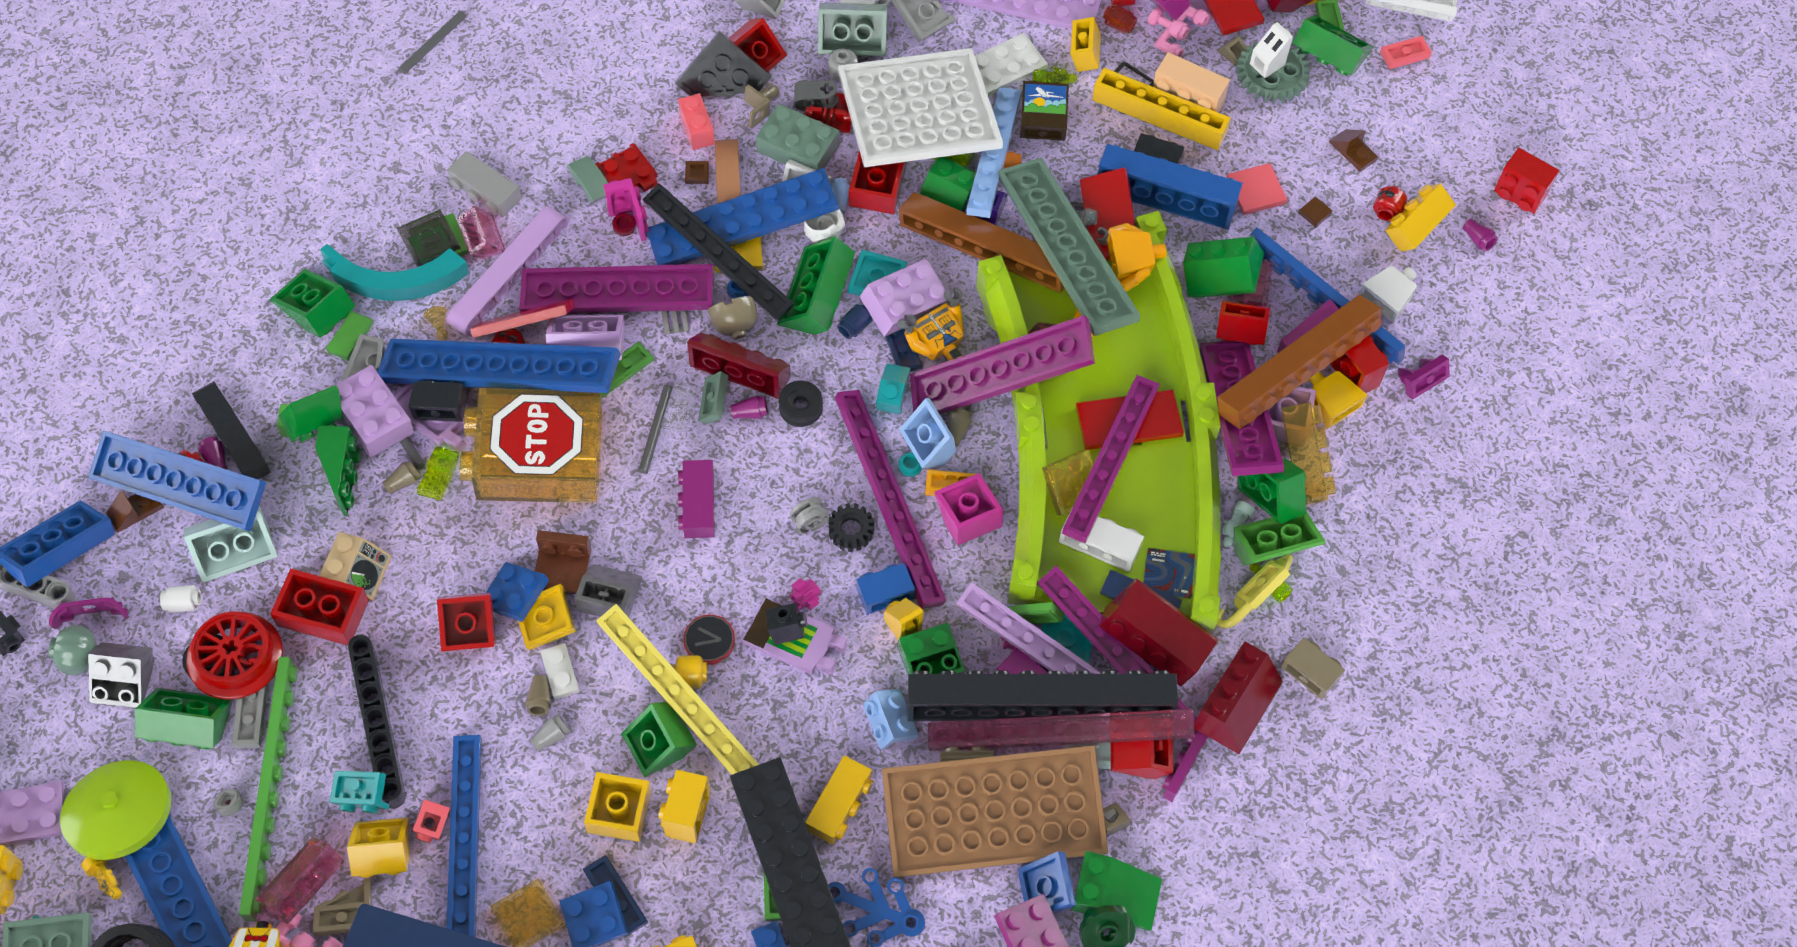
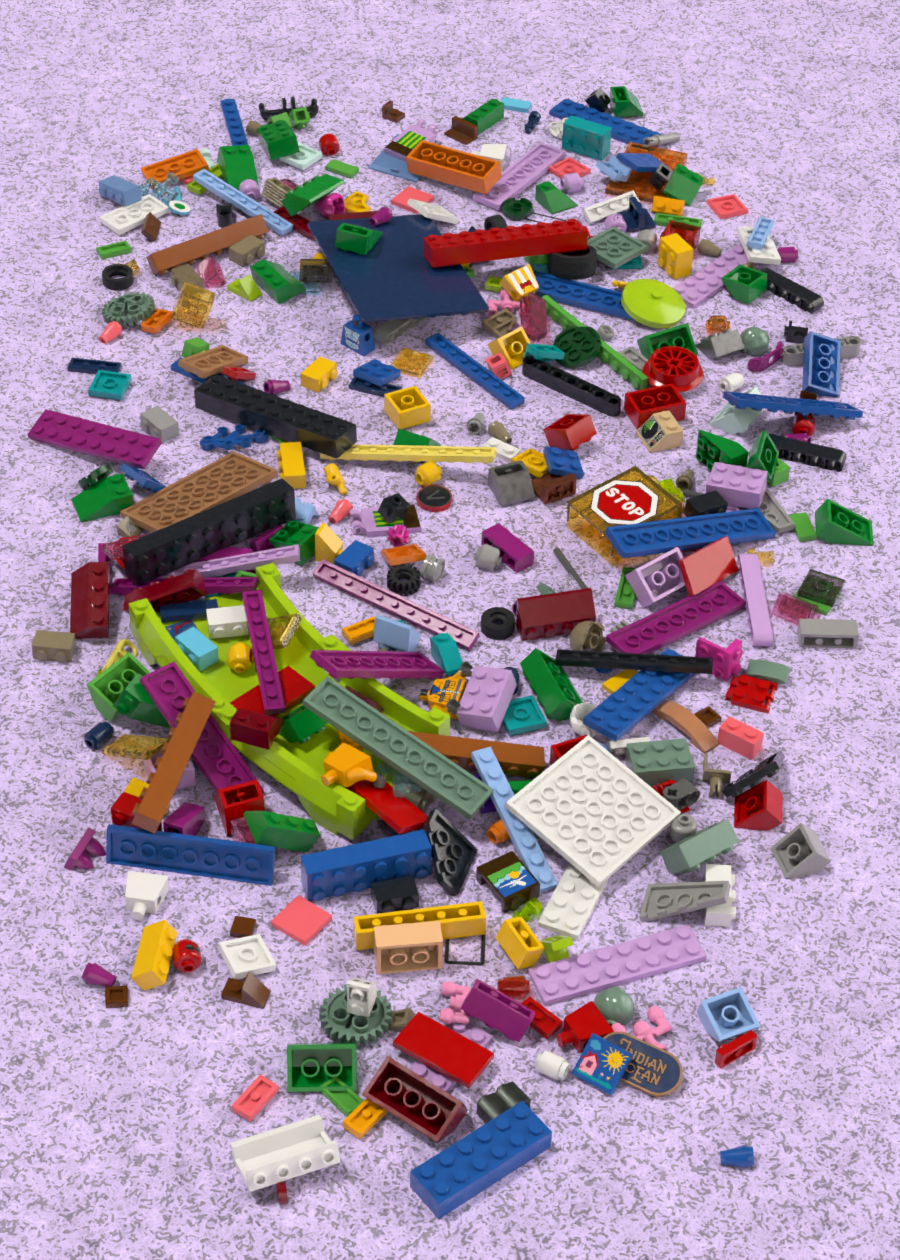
camera: 145 degrees right, 20 degrees down
(80, 715) = (717, 324): none -> clear orange head
(298, 786) = (579, 345): none -> dark green tile
(398, 285) = (816, 553): teal arch -> none
(685, 806) = (371, 419): yellow brick -> none
(732, 499) = (487, 557): none -> light grey head
(803, 743) = (335, 478): none -> yellow piece
(823, 560) = (403, 554): none -> orange tile
(839, 682) = (340, 511): none -> coral cone
(969, 509) = (336, 613): dark pink slope -> none
(1054, 29) = (556, 947): none -> lime slope
(1080, 157) = (450, 852): none -> black plate
(1123, 359) = (301, 724): none -> green slope
(1132, 484) = (240, 657): none -> yellow head
(1173, 525) = (197, 648): none -> medium azure brick
(1189, 350) = (255, 728): none -> dark red slope
(1330, 508) = (99, 735): none -> dark blue brick
(1333, 174) = (247, 956): none -> white plate
(1471, 210) = (116, 996): none -> reddish brown tile
(1526, 180) = (82, 1023): red brick -> none

